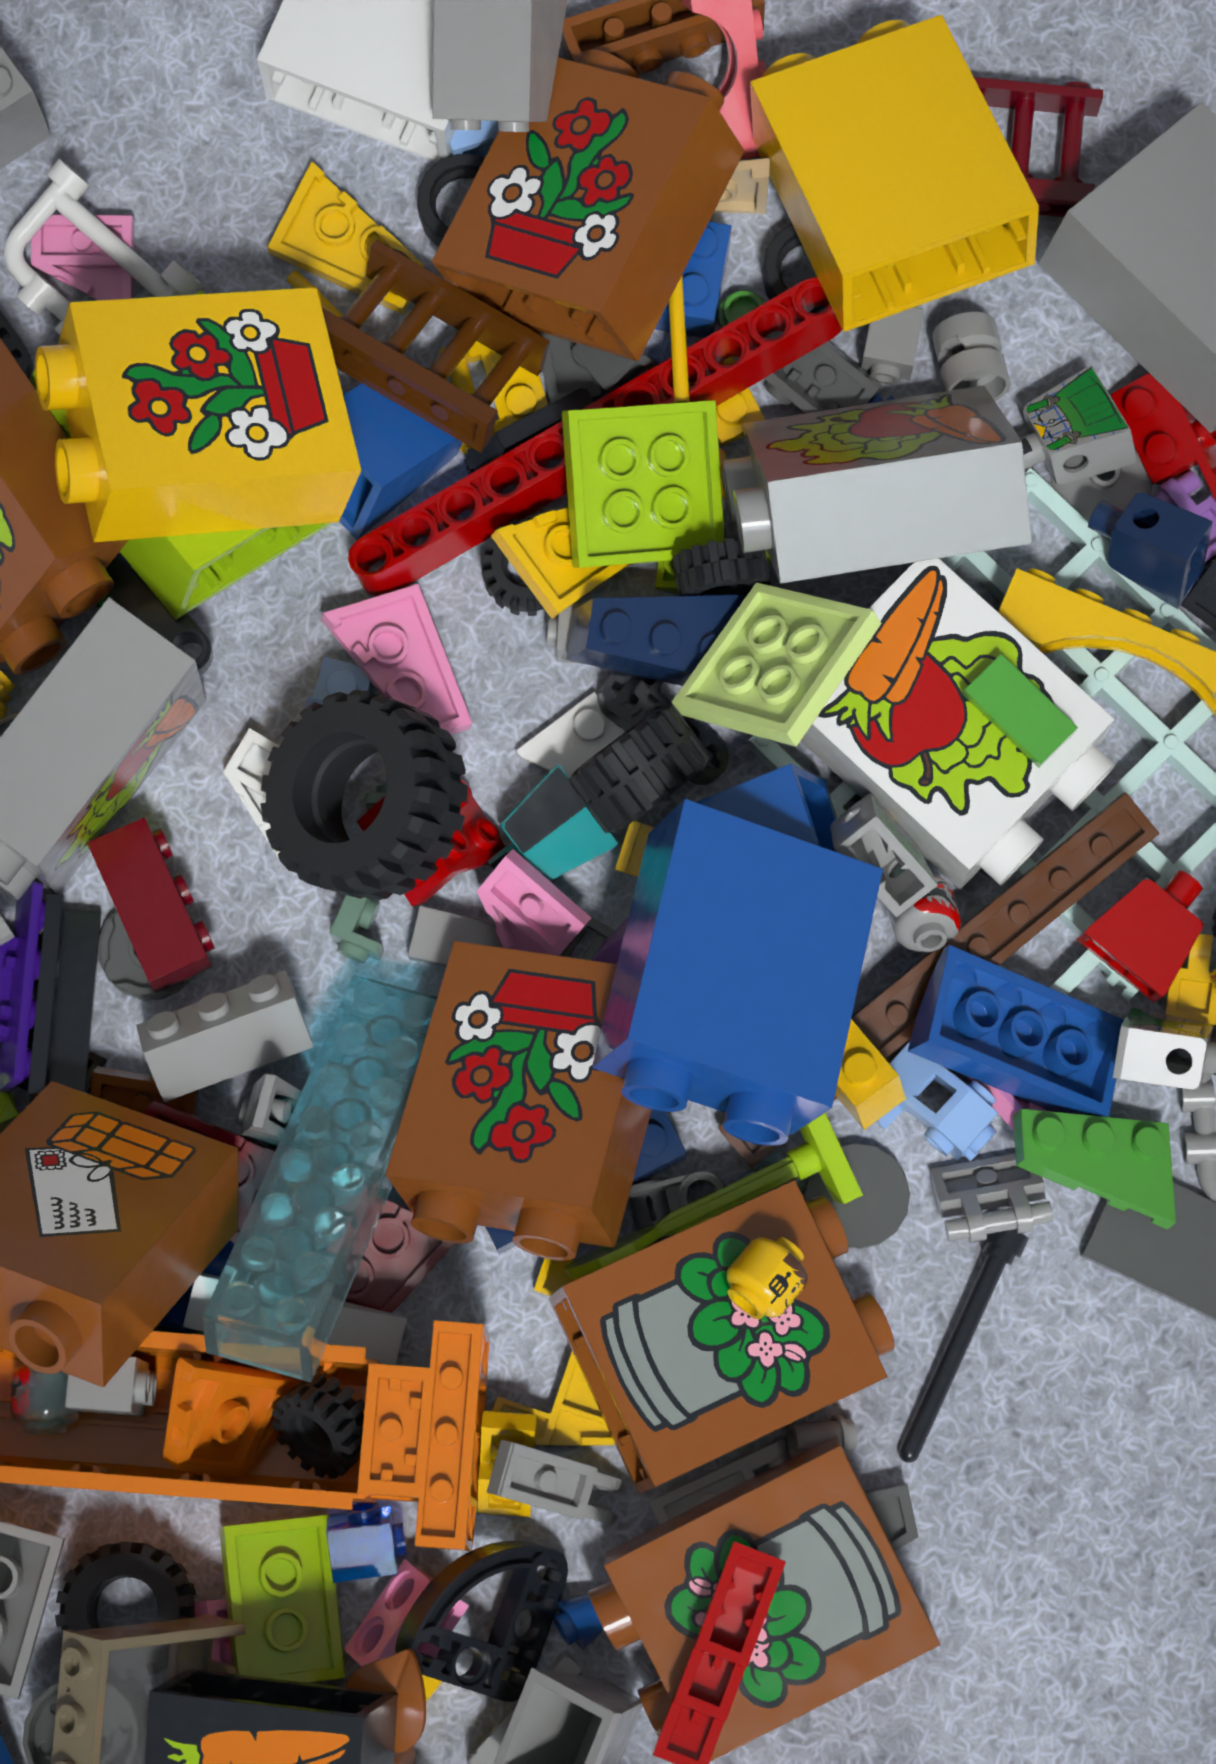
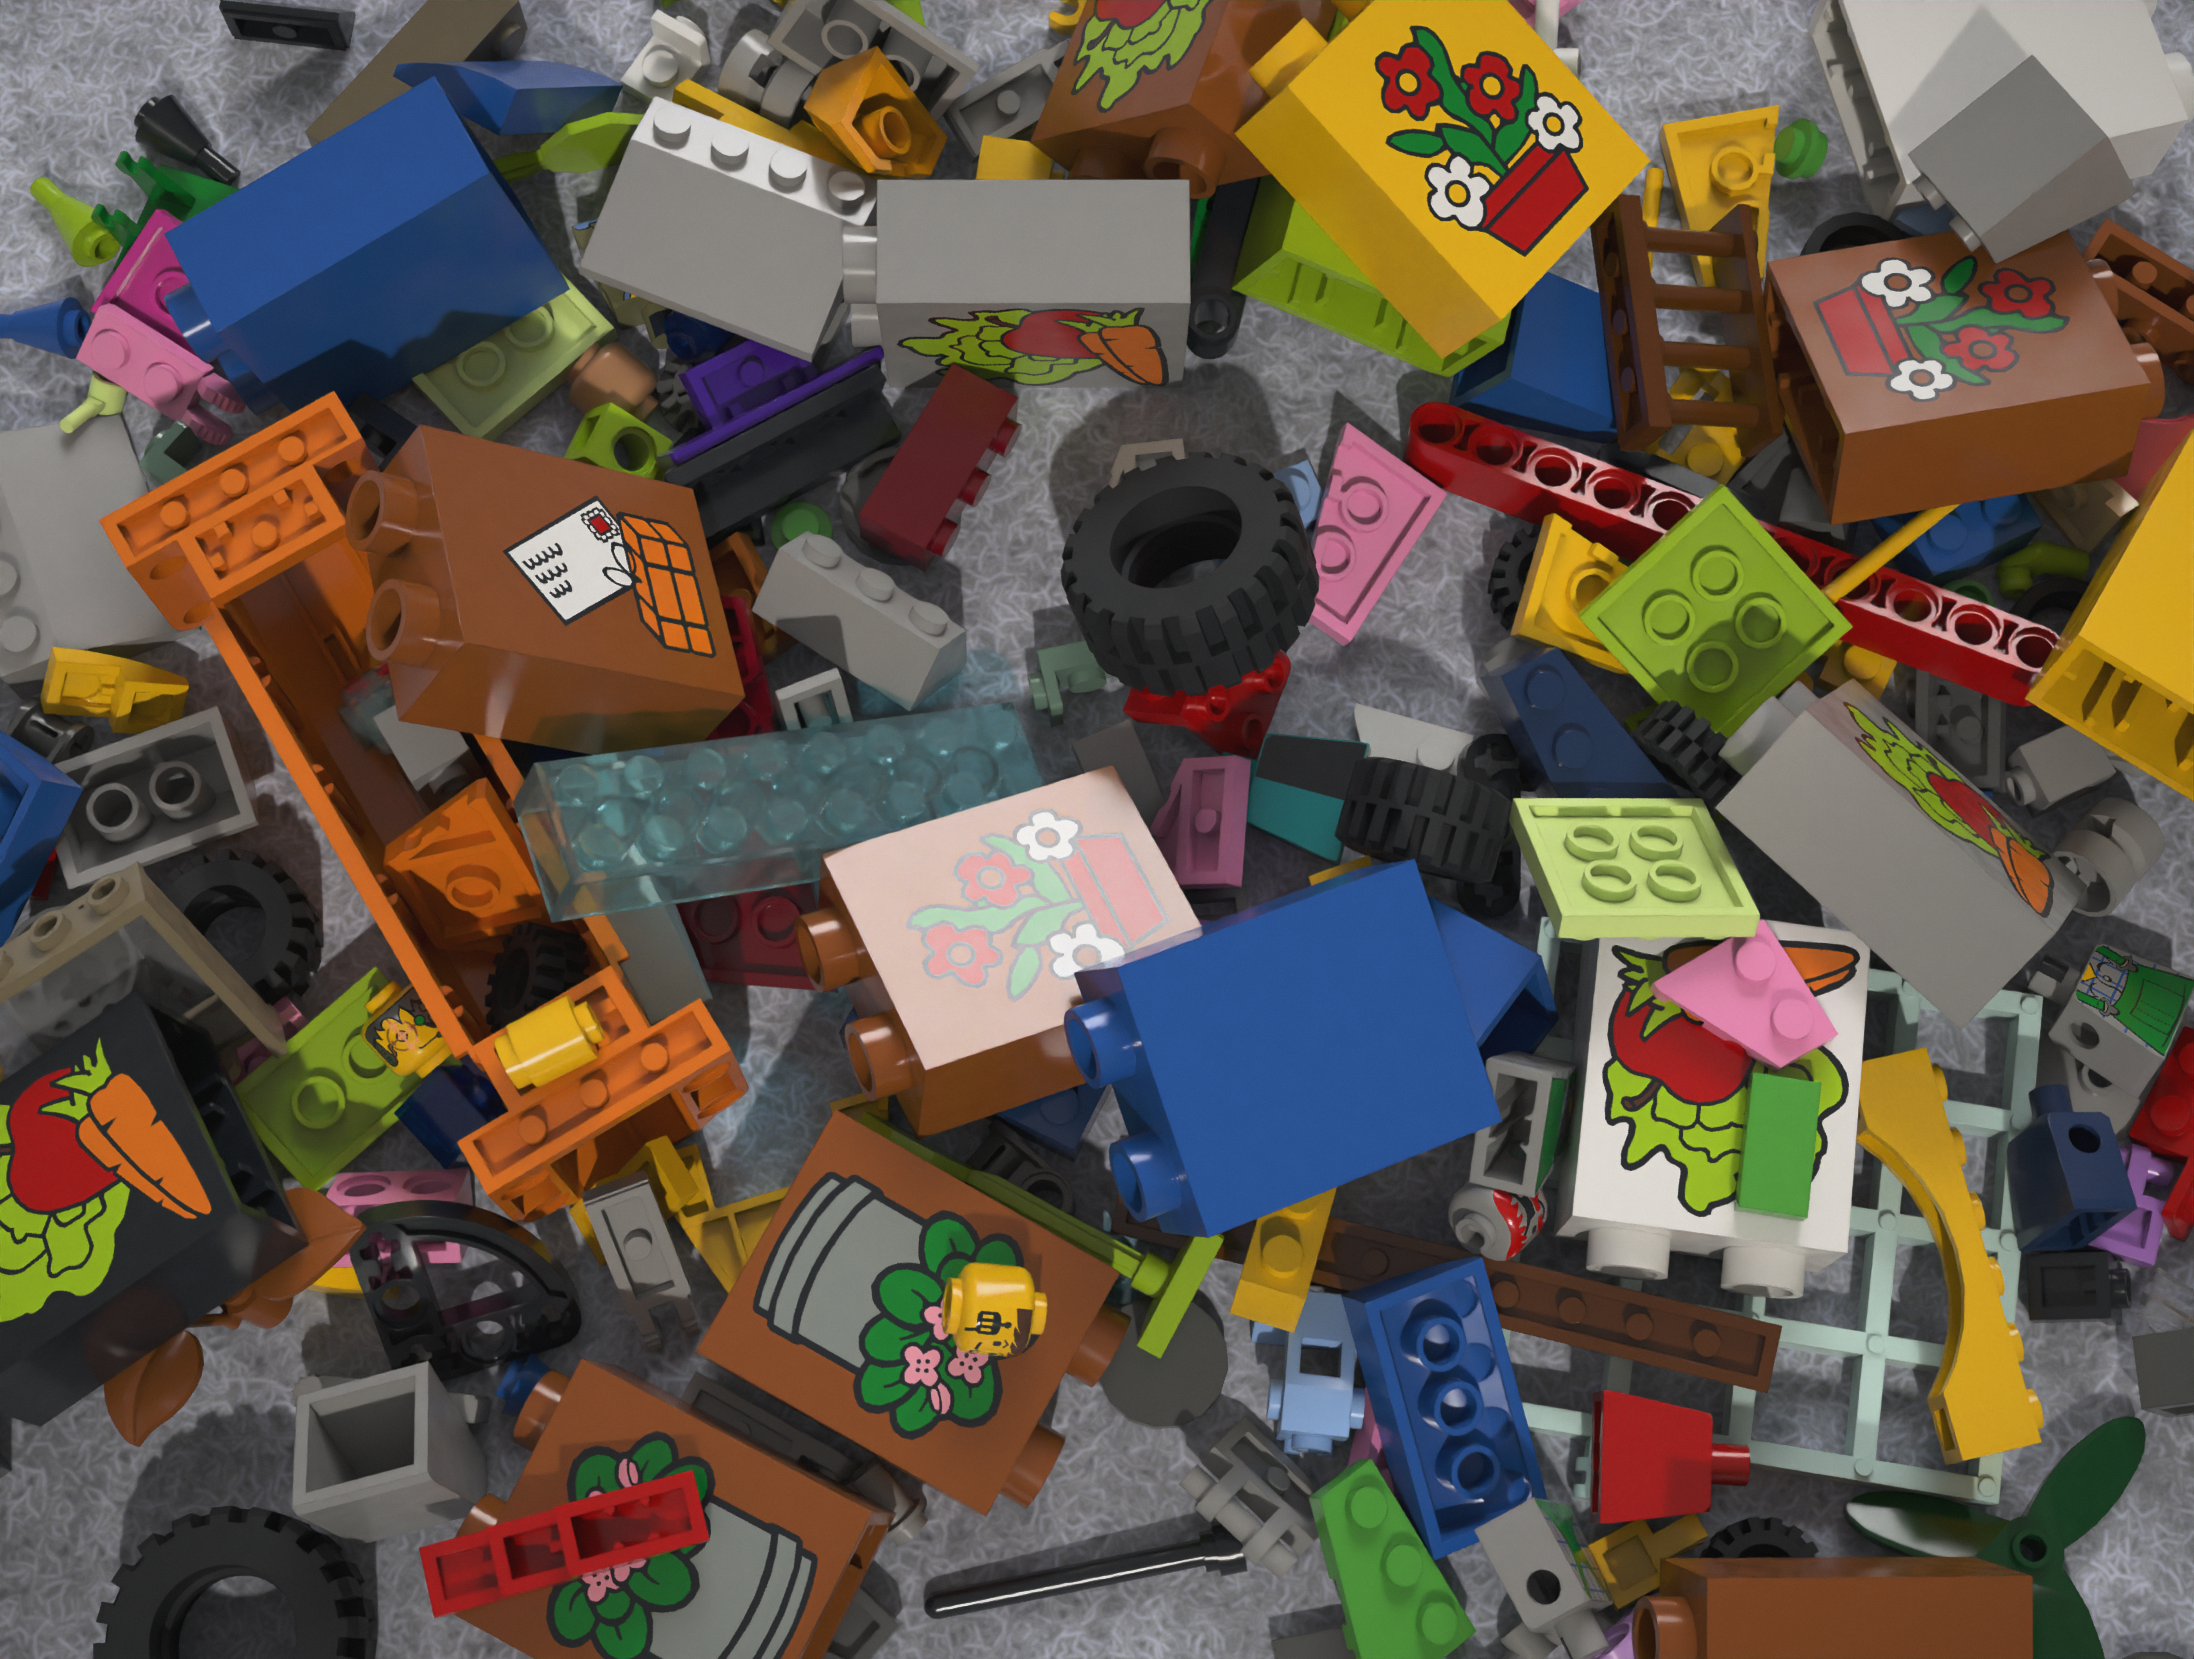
camera: 50 degrees right, 5 degrees down
(117, 1030) = (798, 519): none -> bright green plate
(285, 1534) = (403, 1031): none -> yellow head
(352, 171) = (1800, 149): none -> bright green plate
(397, 1438) = (549, 1042): none -> yellow brick
(745, 243) = (2040, 557): none -> lime arm
(915, 654) = (1751, 997): none -> bright pink wing

